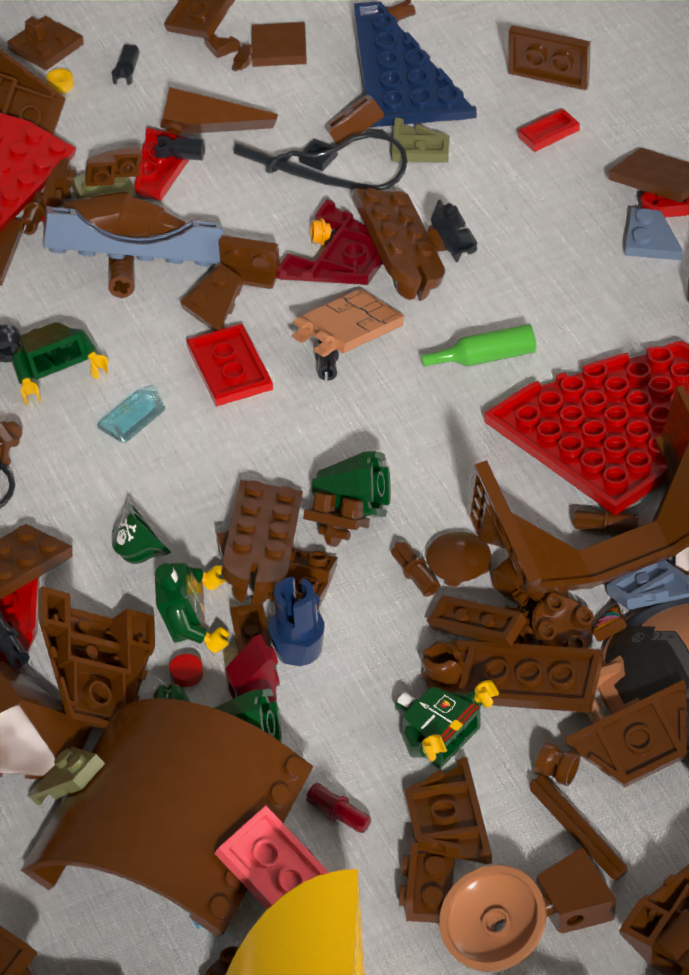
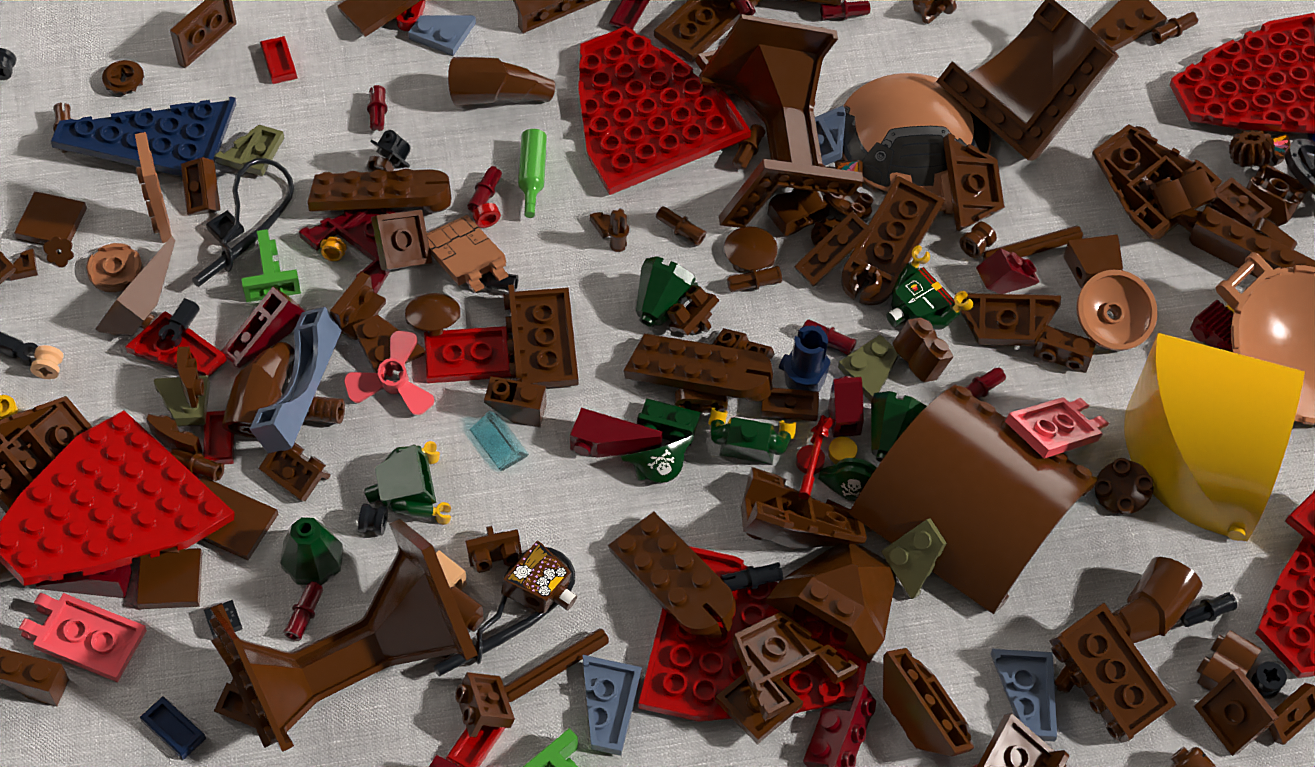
camera: 80 degrees left, 10 degrees up
(49, 277) = (294, 471): none -> reddish brown bracket
(113, 87) = (46, 362): none -> light nougat wheel
(146, 662) = (819, 432): none -> red piece
(156, 488) = (607, 436): none -> dark red slope
(173, 313) = (363, 385): none -> coral piece
(174, 408) = (517, 400): none -> reddish brown slope
(194, 537) = (672, 420): none -> dark green bracket
(207, 693) = (842, 448): none -> yellow tile
(208, 206) = (266, 325): none -> dark red slope
(244, 93) = (113, 267): none -> nougat tile
(264, 406) = (541, 337): none -> reddish brown bracket
(265, 321) = (432, 313): none -> reddish brown dish
(273, 193) = (258, 286): none -> bright green bracket
(303, 67) = (151, 189): none -> nougat wing
(334, 700) = (871, 363): none -> olive wing
(335, 265) = (401, 240): none -> reddish brown hinge
(358, 652) = (835, 339): none -> dark red axle
(362, 733) = (922, 349): none -> reddish brown brick
(407, 328) = (486, 215): none -> red tile
(421, 428) = (618, 230): none -> reddish brown axle
(443, 429) = (601, 223): none -> reddish brown tile
(444, 321) = (485, 189): none -> dark red axle
(460, 490) = (681, 225): none -> reddish brown axle
(479, 33) = (113, 74): none -> reddish brown gear
(515, 213) = (377, 107): none -> dark red axle
(517, 803) = (1007, 272): none -> dark red slope
(580, 276) = (489, 79): none -> reddish brown piece

